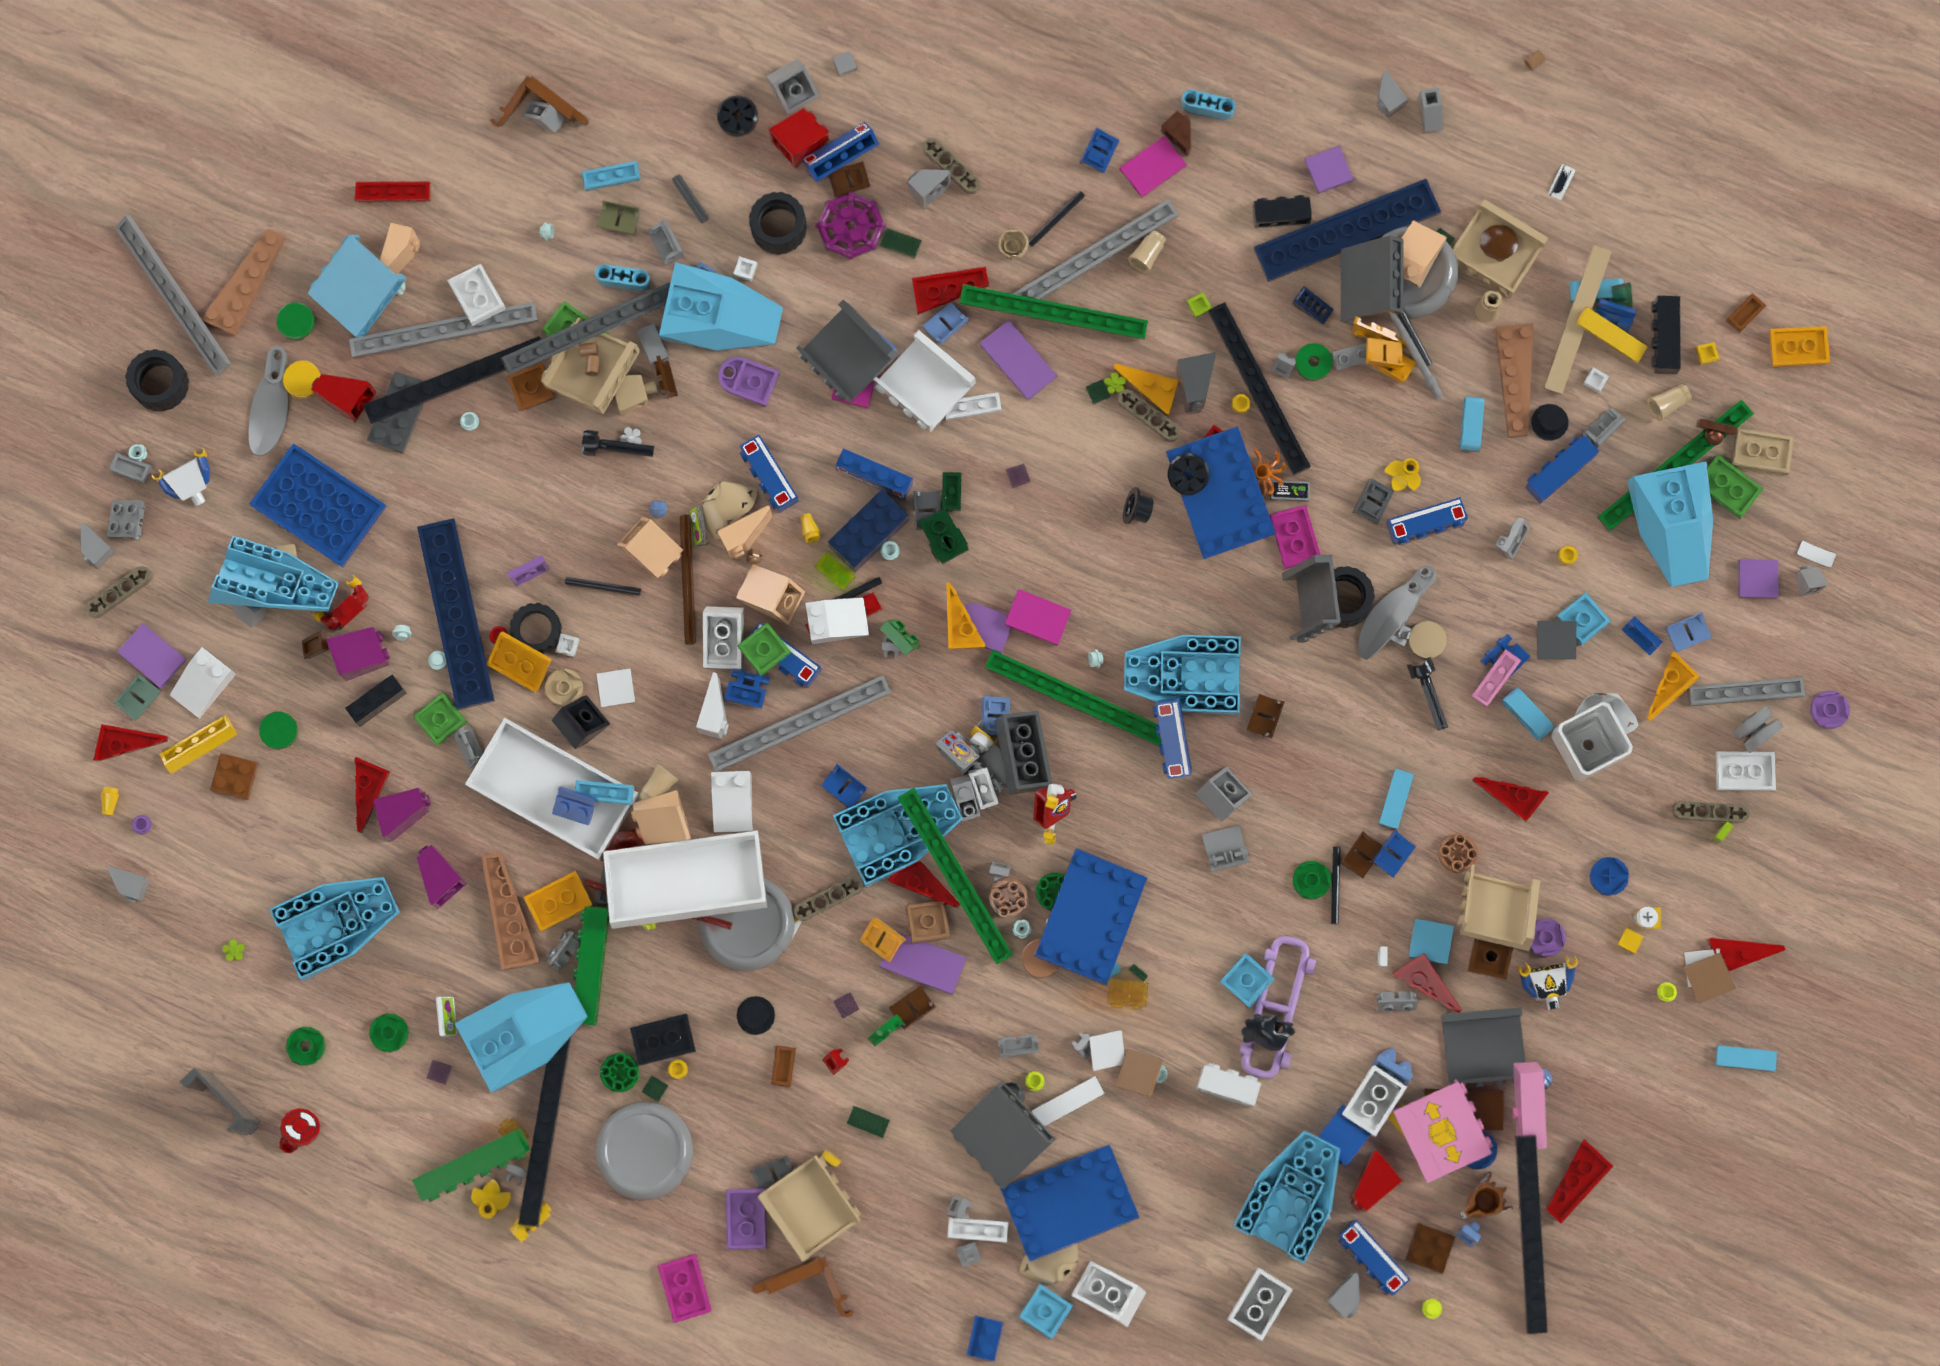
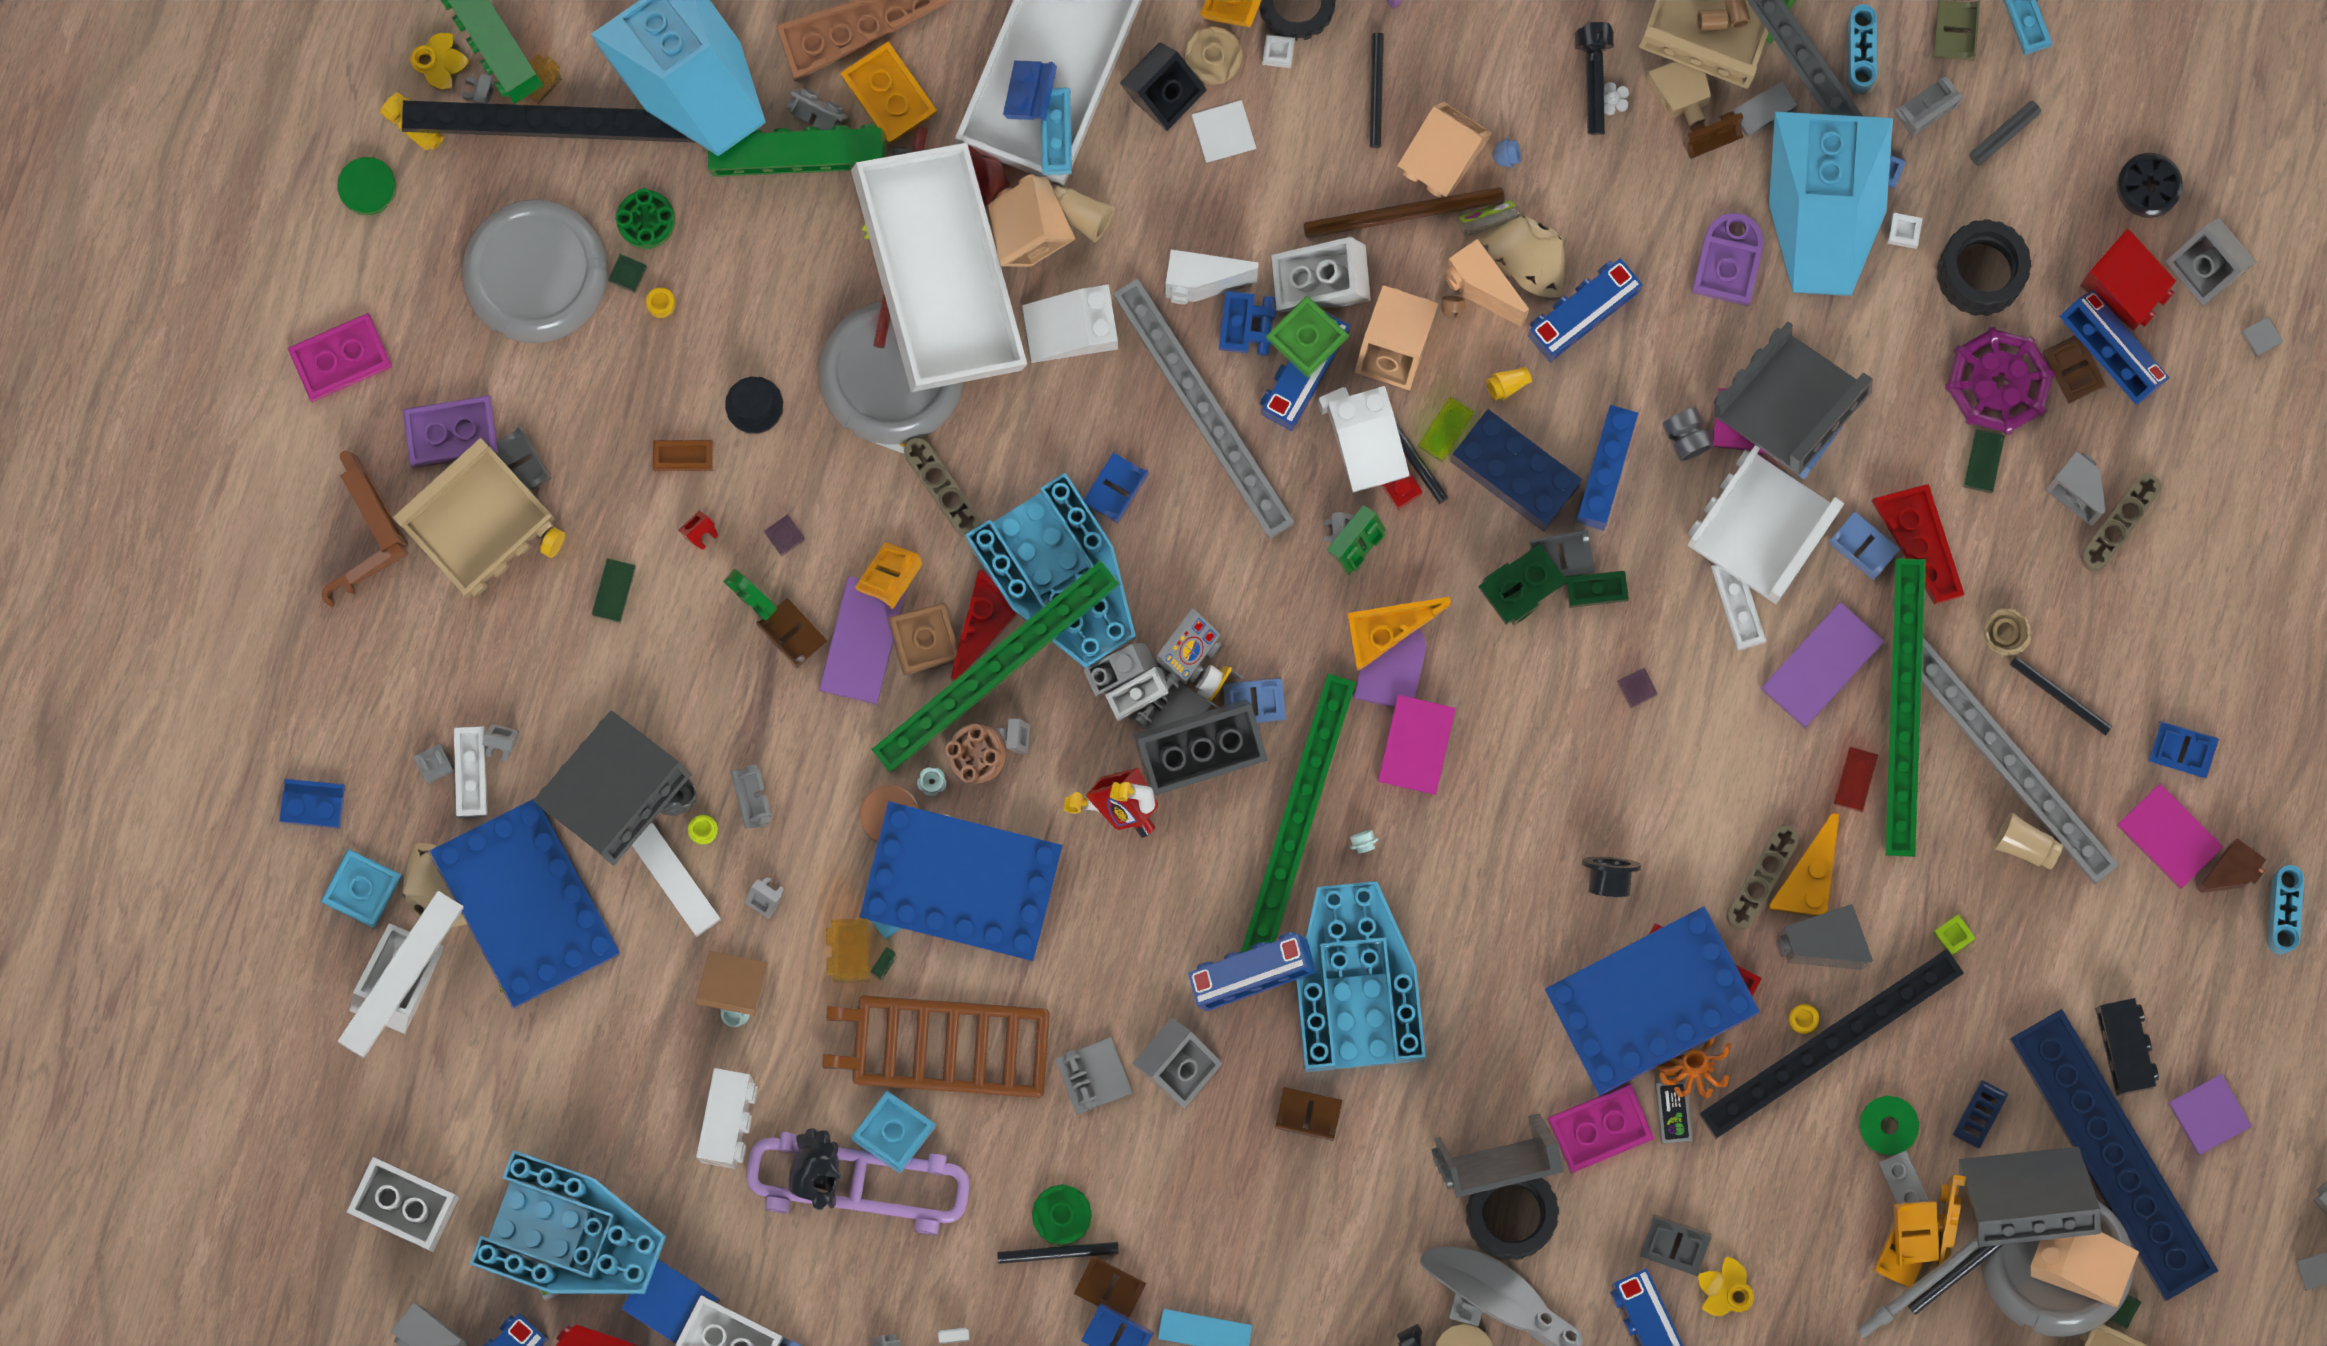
camera: 80 degrees right, 0 degrees up
(569, 1257) = (366, 186): none -> green tile
(663, 1039) = (700, 273): black plate -> none
(806, 640) = (1335, 395): none -> white tile
(859, 420) = (1688, 435): none -> flat silver wheel
(889, 550) = (1491, 508): light aqua plate -> none
(1048, 889) = (996, 812): green tile -> none
(1093, 350) = (1855, 779): none -> clear red tile
(1097, 392) = (1789, 794): clear green tile -> none
(1107, 1050) = (760, 931): white sticker -> none
(1111, 1287) = (400, 974): none -> white tile
(1115, 383) = (1806, 819): lime plant -> none
(1173, 932) = (948, 1083): none -> dark orange bar
(1178, 480) = (1658, 931): black wheel -> none
(1283, 365) = (1874, 1078): light grey tile -> none

